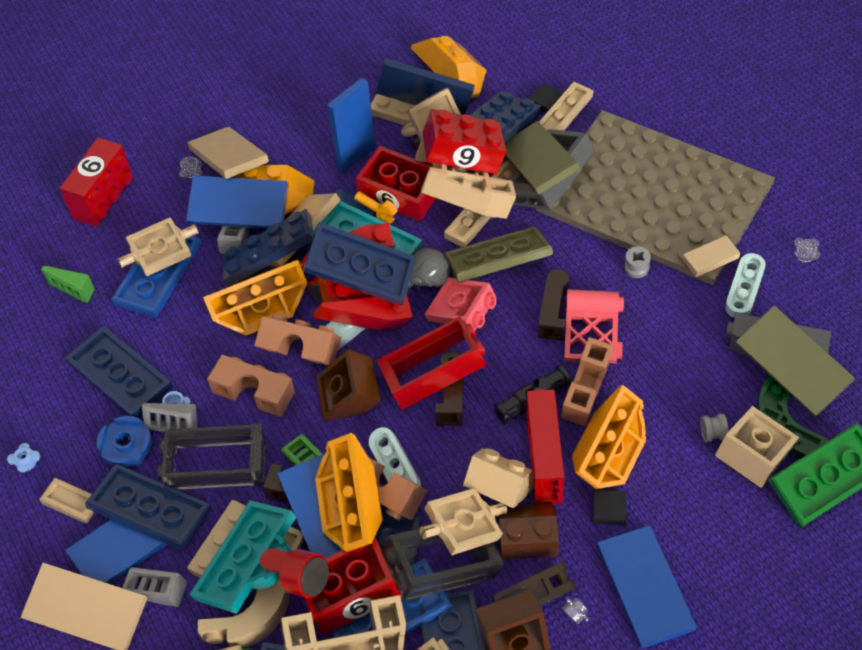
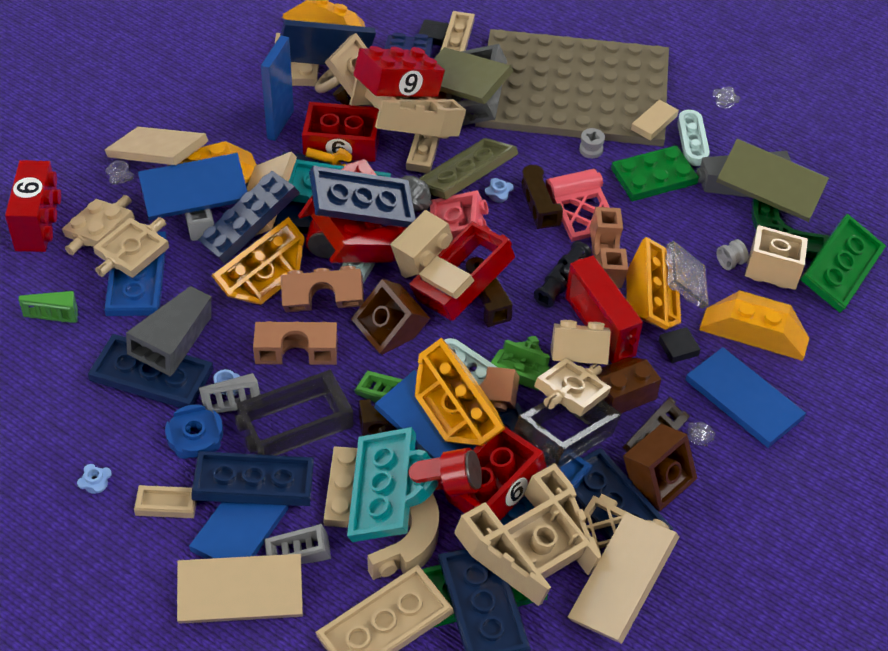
camera: 30 degrees left, 5 degrees down
(146, 212) = (96, 223): none -> tan plate
(149, 339) = (170, 331): none -> dark grey slope
(402, 323) = (421, 243): none -> tan slope
(406, 367) = (446, 277): none -> tan tile
(444, 471) = (525, 358): none -> bright green slope
(519, 291) = (498, 190): none -> light blue plate
(651, 436) = (686, 275): none -> clear tile
(686, 313) = (654, 173): none -> green plate
(702, 512) = (757, 323): none -> light orange wedge

